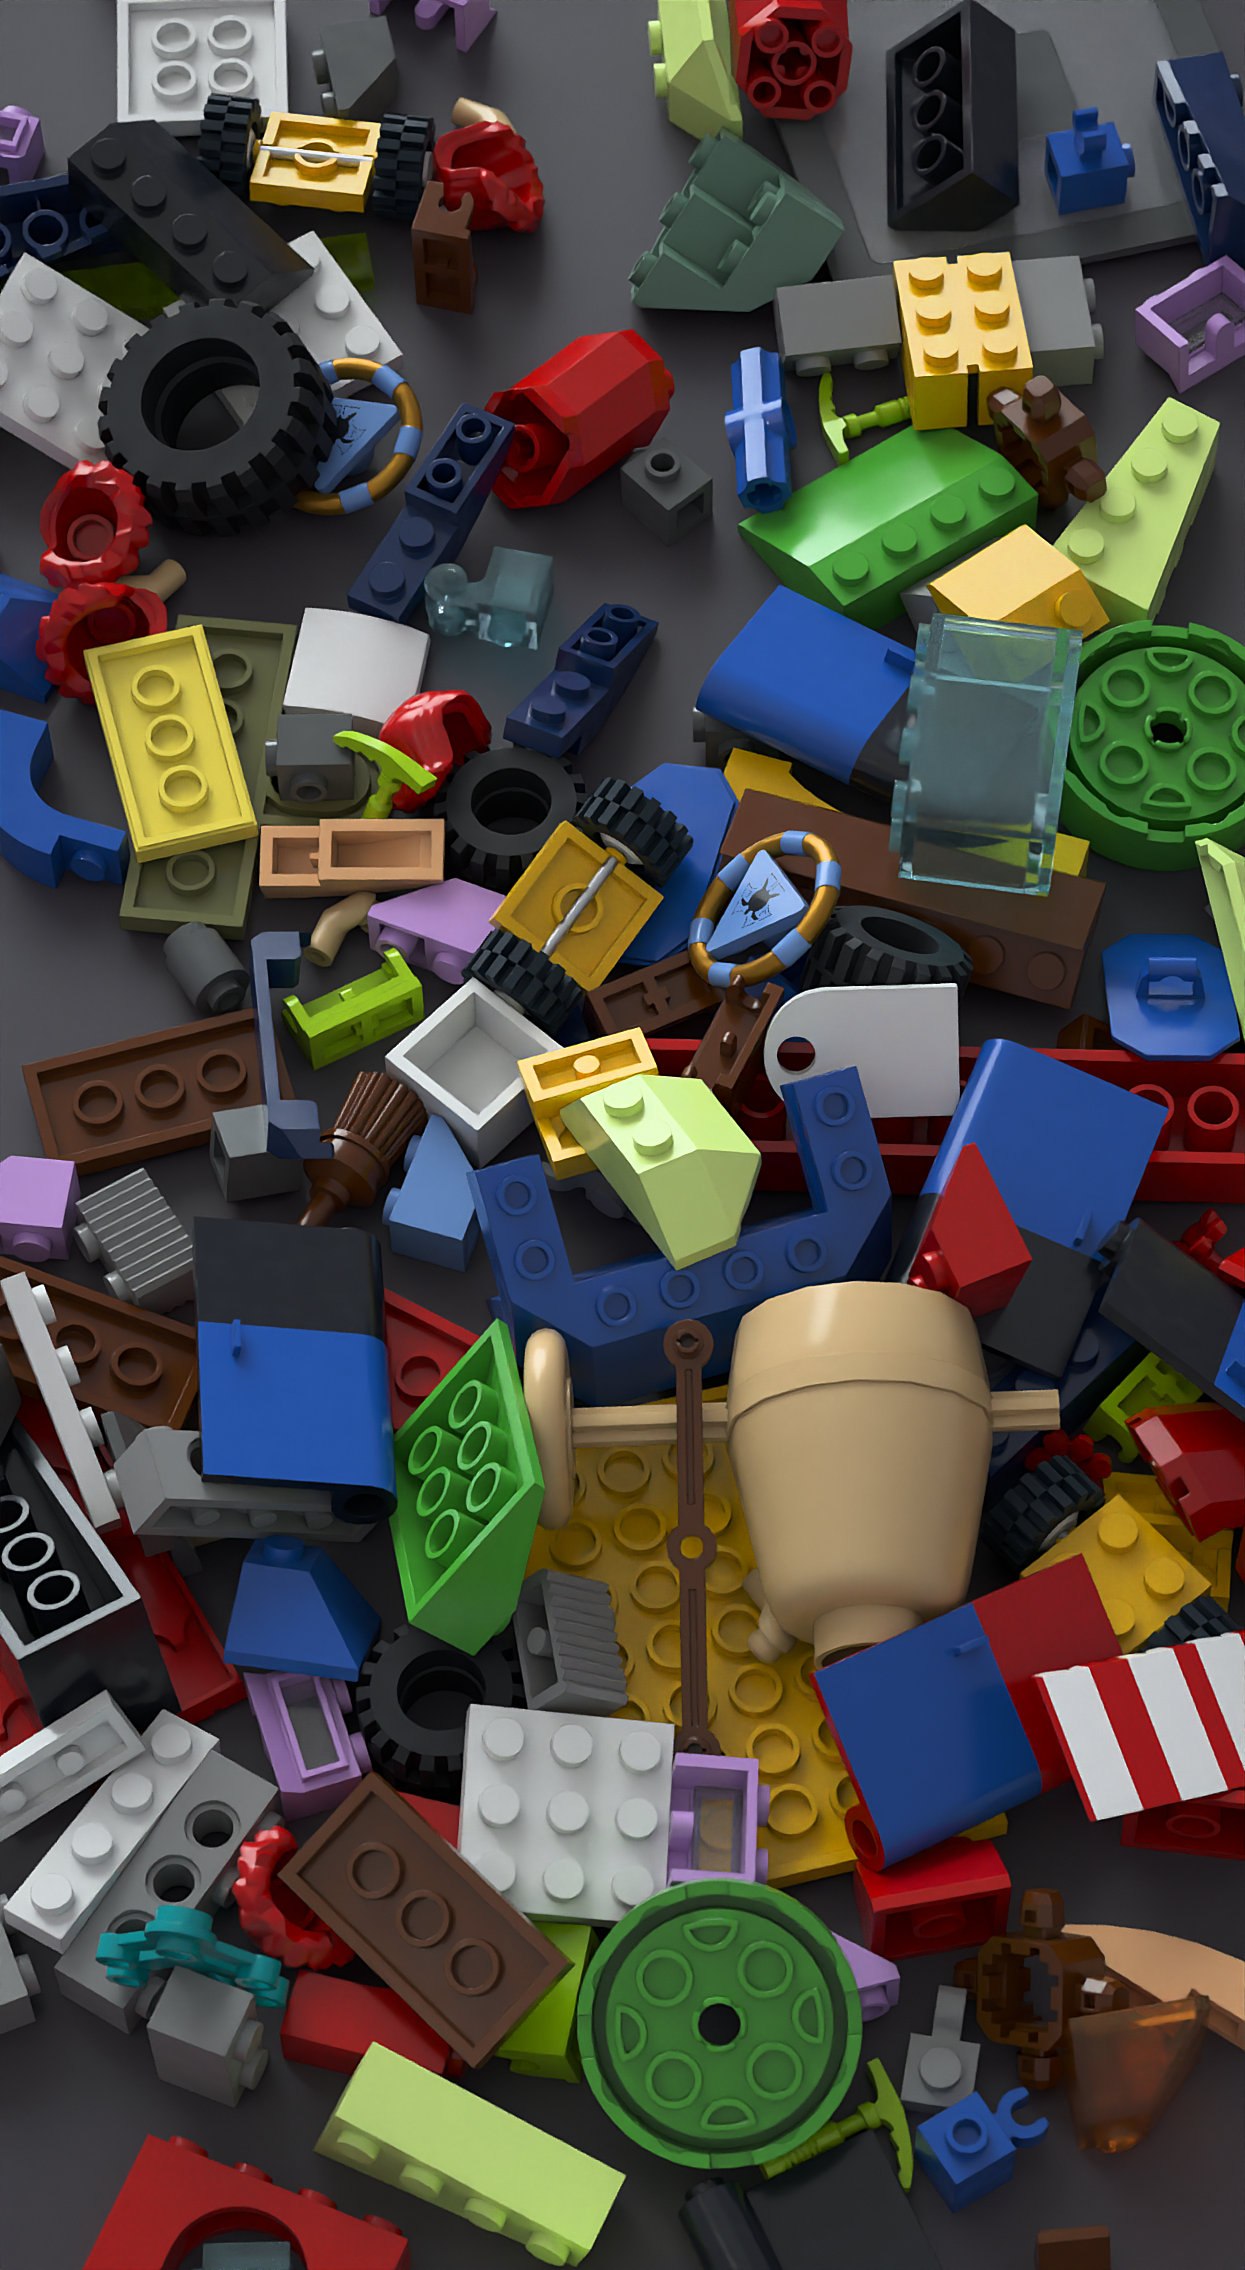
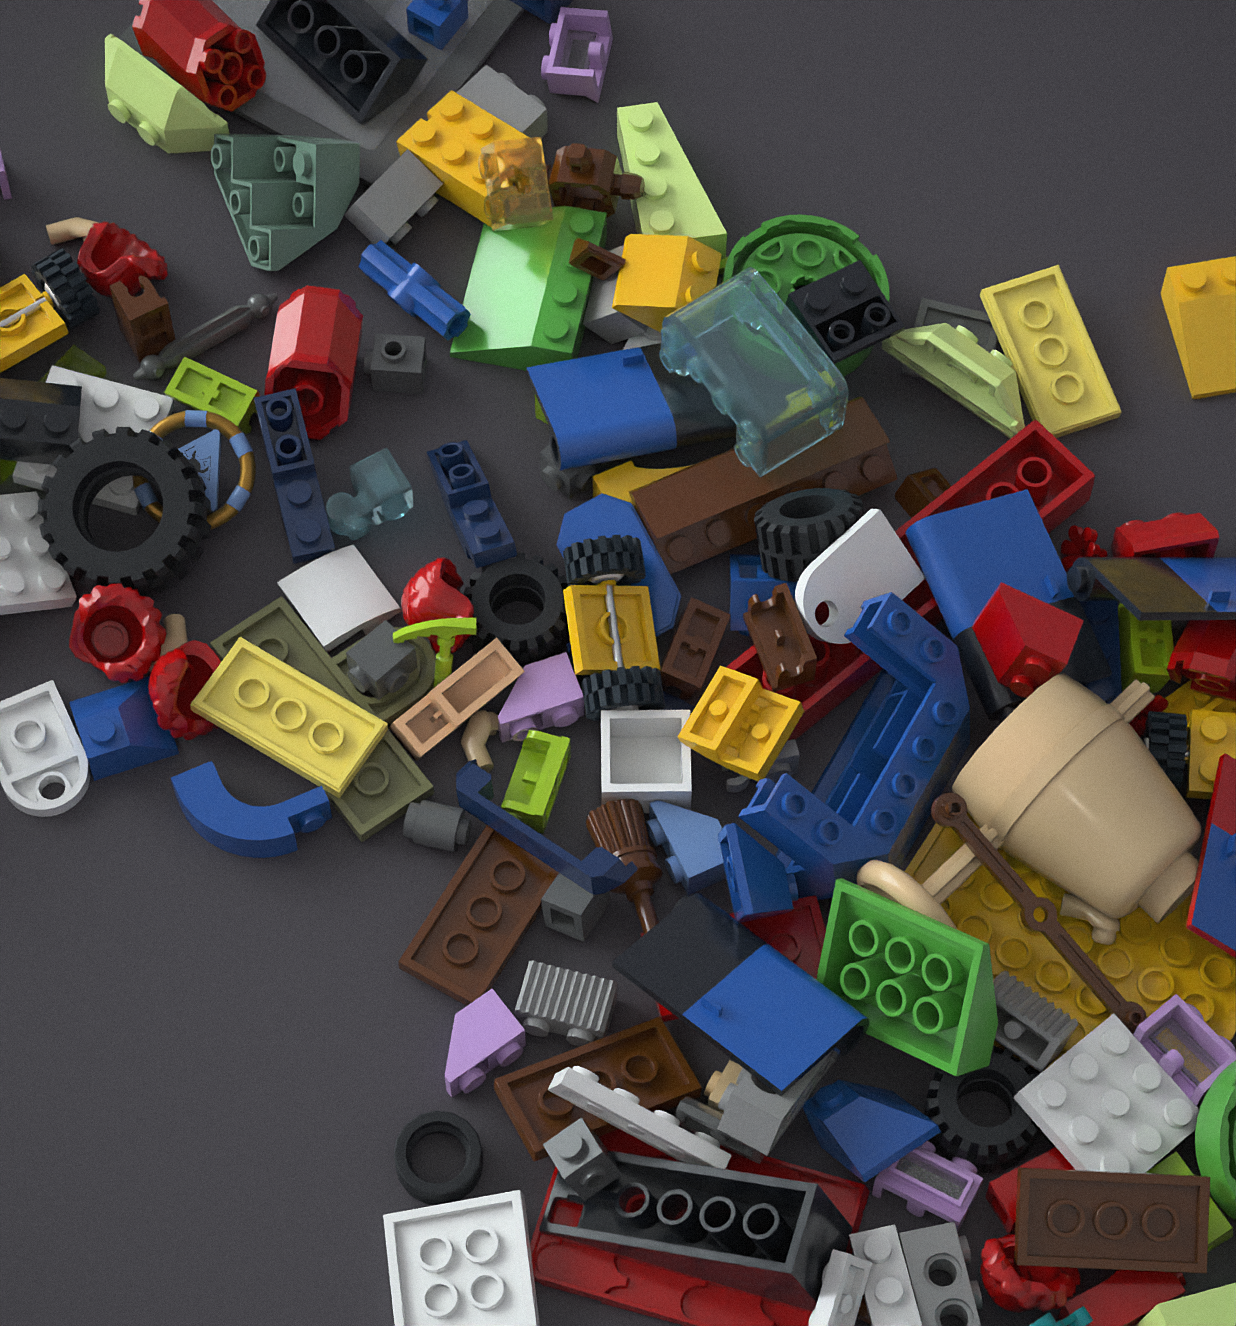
camera: 45 degrees left, 5 degrees up
(436, 371) = (213, 392): none -> lime hinge
(438, 1262) = (754, 877): none -> blue slope
(498, 320) = (205, 336): none -> dark grey wheel
(670, 1160) = (827, 722): yellowish green wedge -> none
(763, 910) = (720, 550): medium blue piece -> none
(837, 428) = (448, 257): lime piece -> none
(964, 524) = (594, 259): none -> reddish brown slope
(982, 360) = (522, 164): none -> clear yellow brick
(1161, 770) = (845, 312): none -> black slope
(1169, 997) = (945, 431): blue shield -> none

